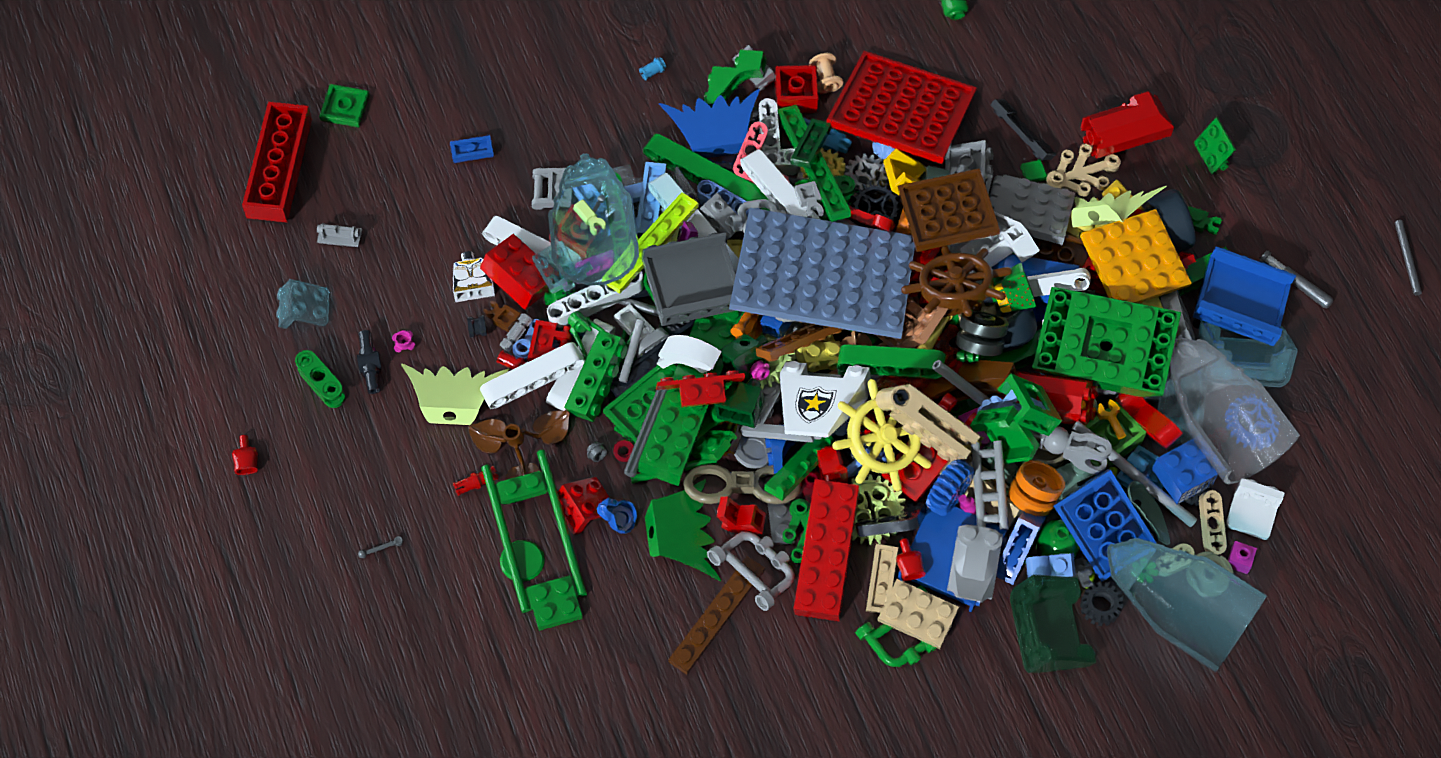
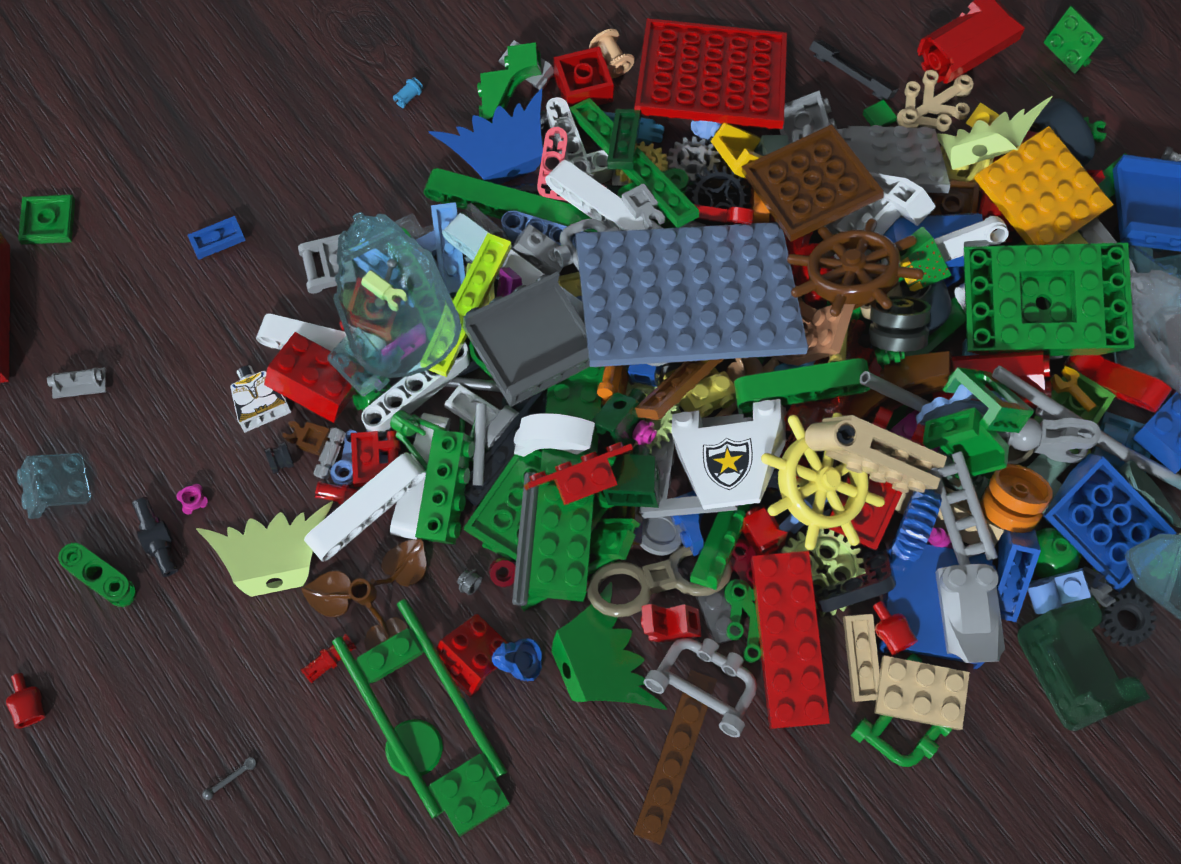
camera: 15 degrees left, 5 degrees up
(1086, 427) = (1057, 410): none -> light grey piece

